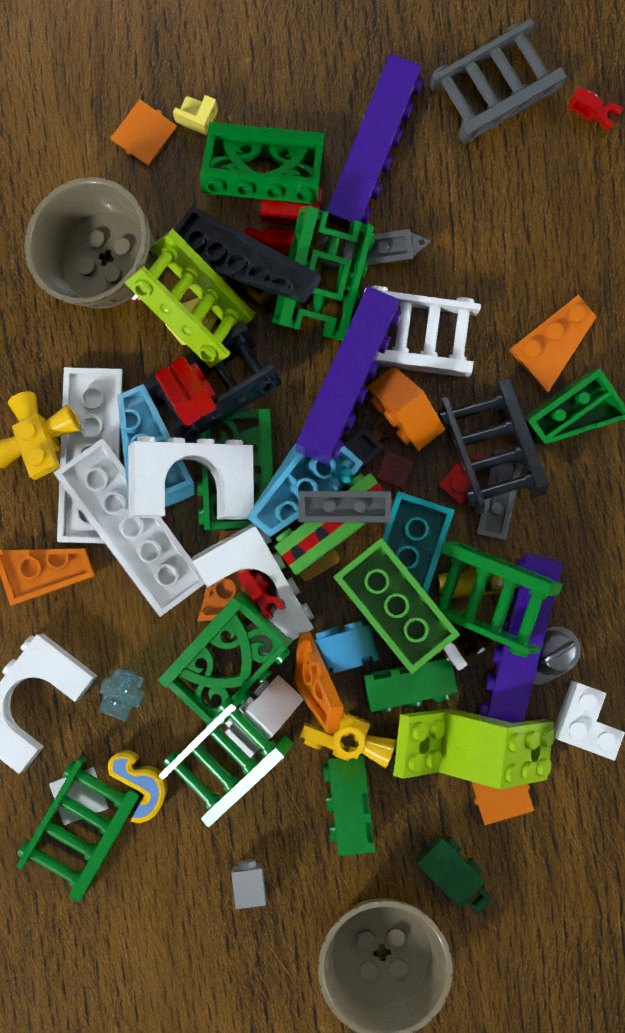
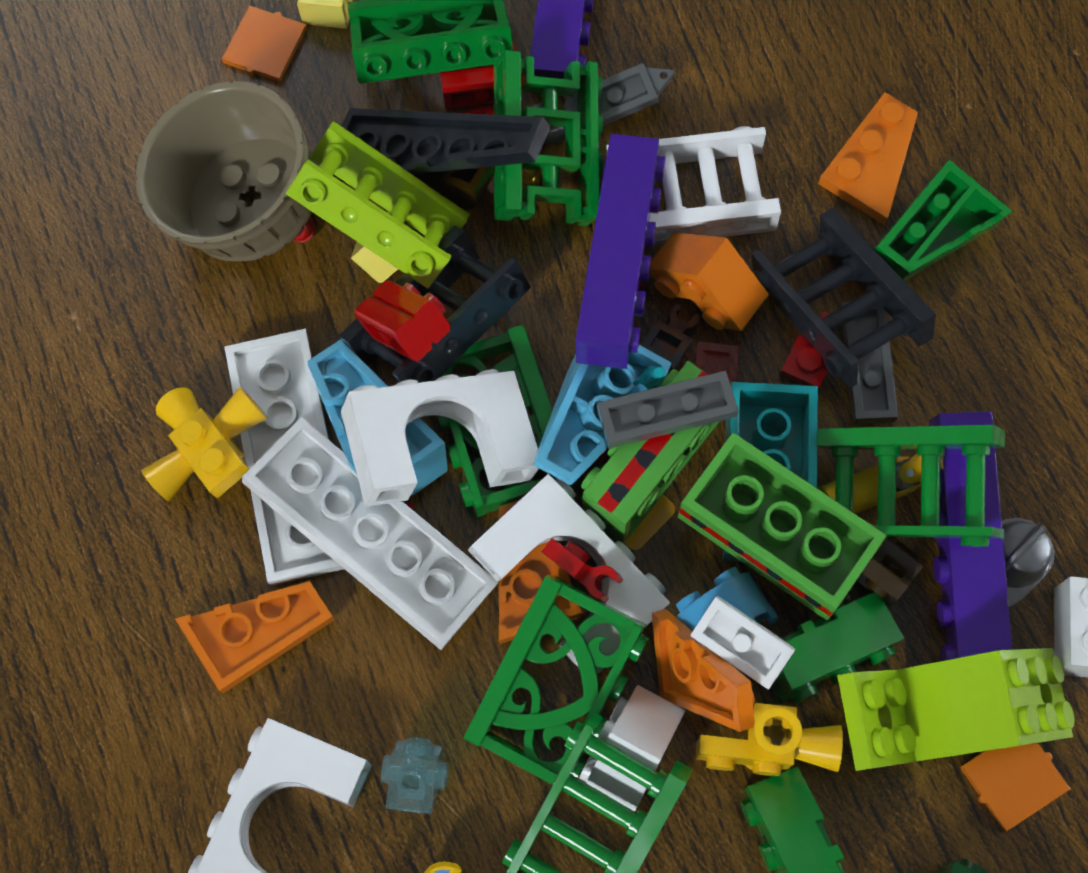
camera: 15 degrees left, 15 degrees down
(347, 676) = (743, 642): none -> white plate

